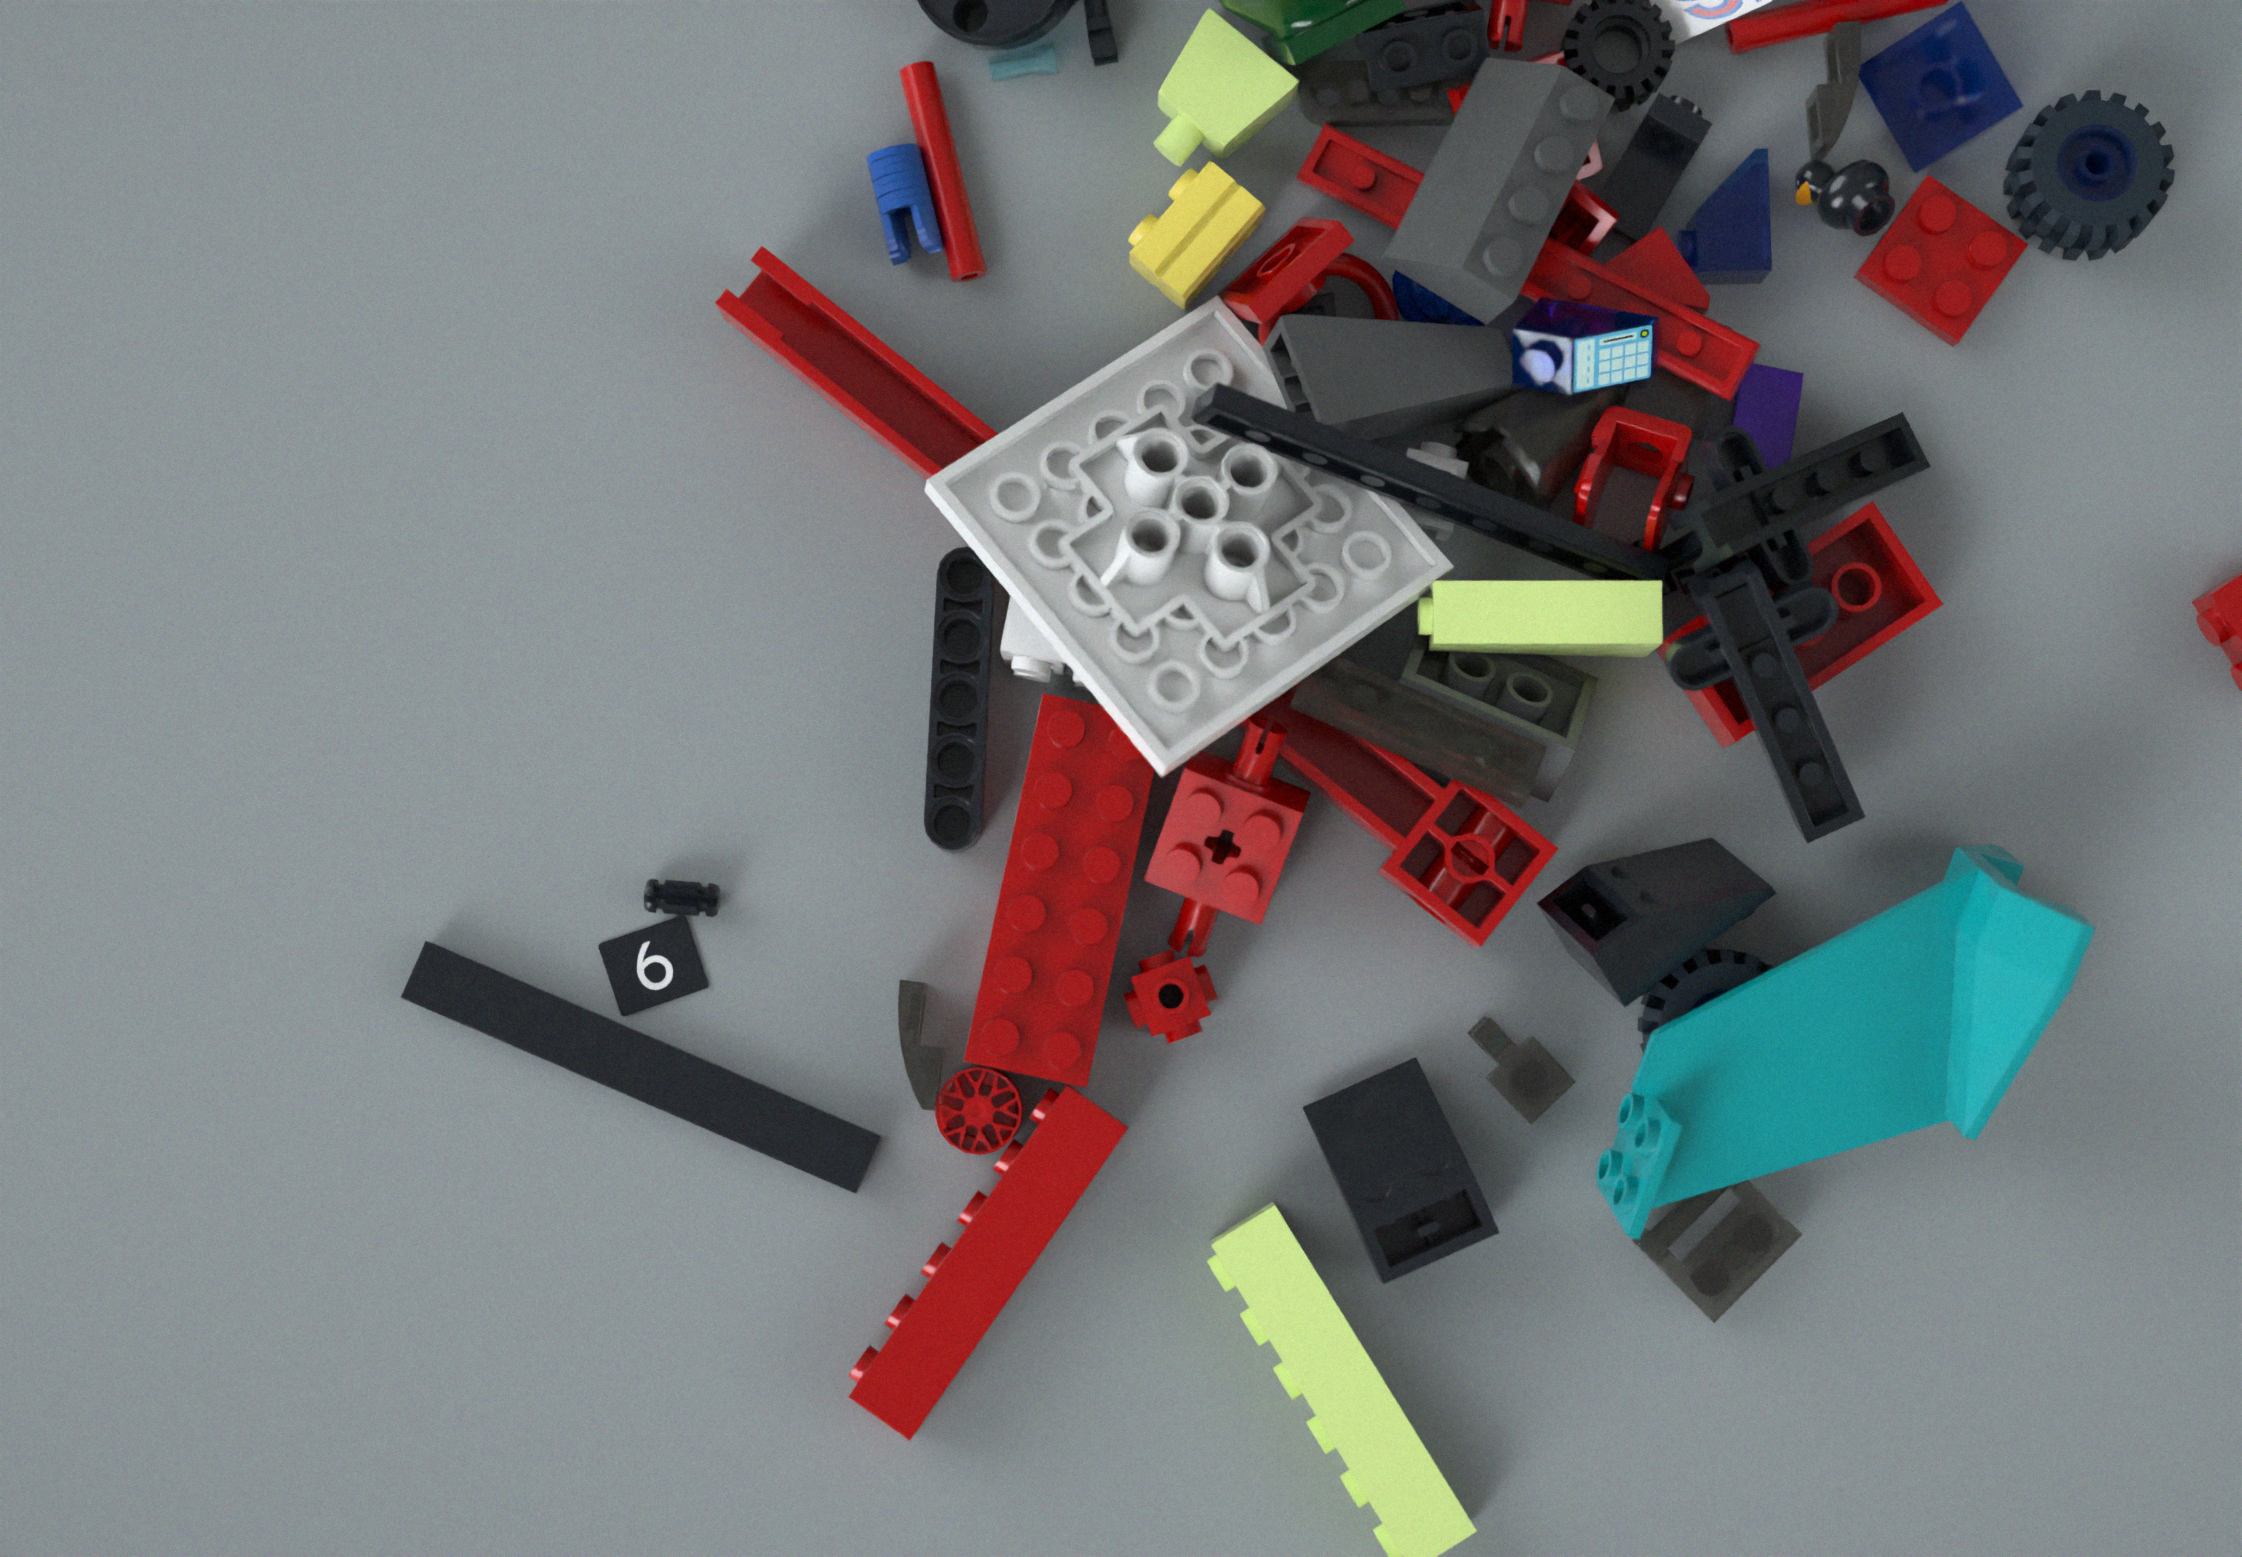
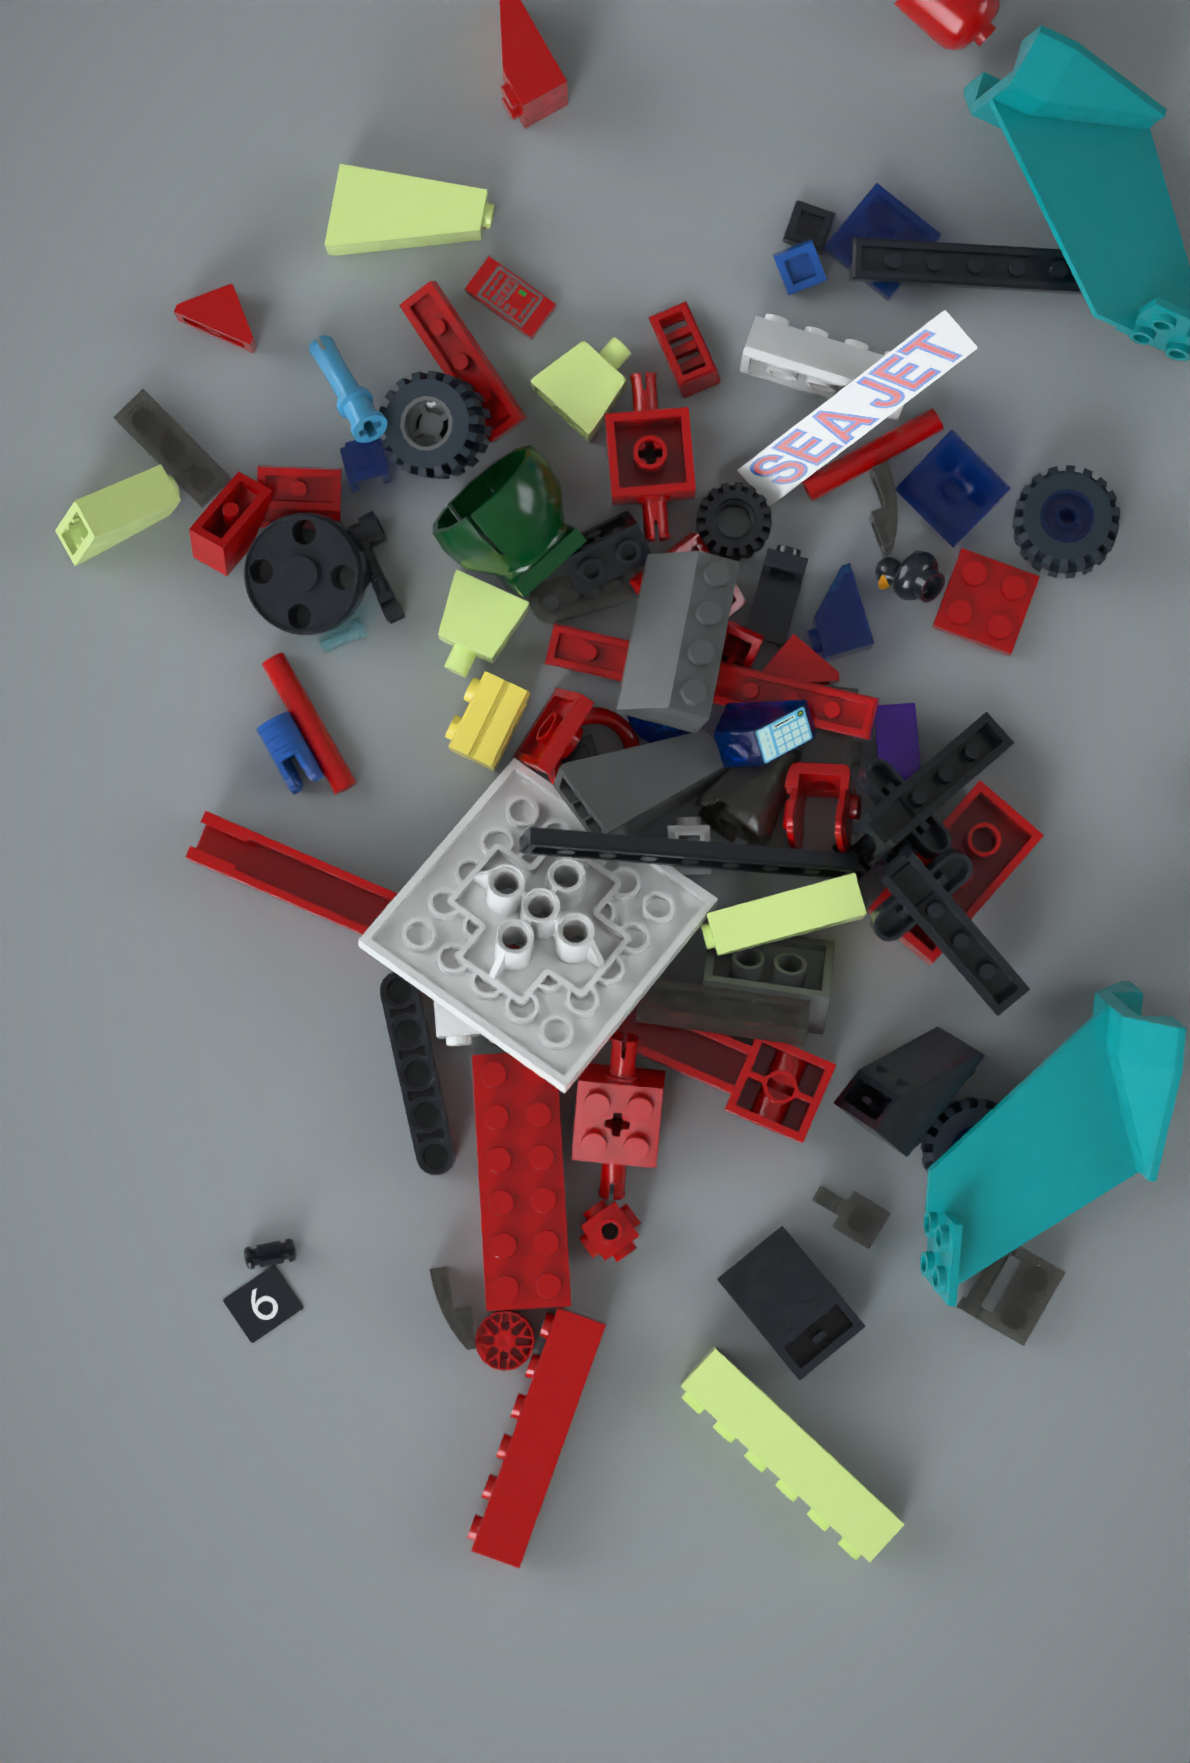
camera: 15 degrees left, 0 degrees up
(641, 1066) = (274, 1372): black tile -> none

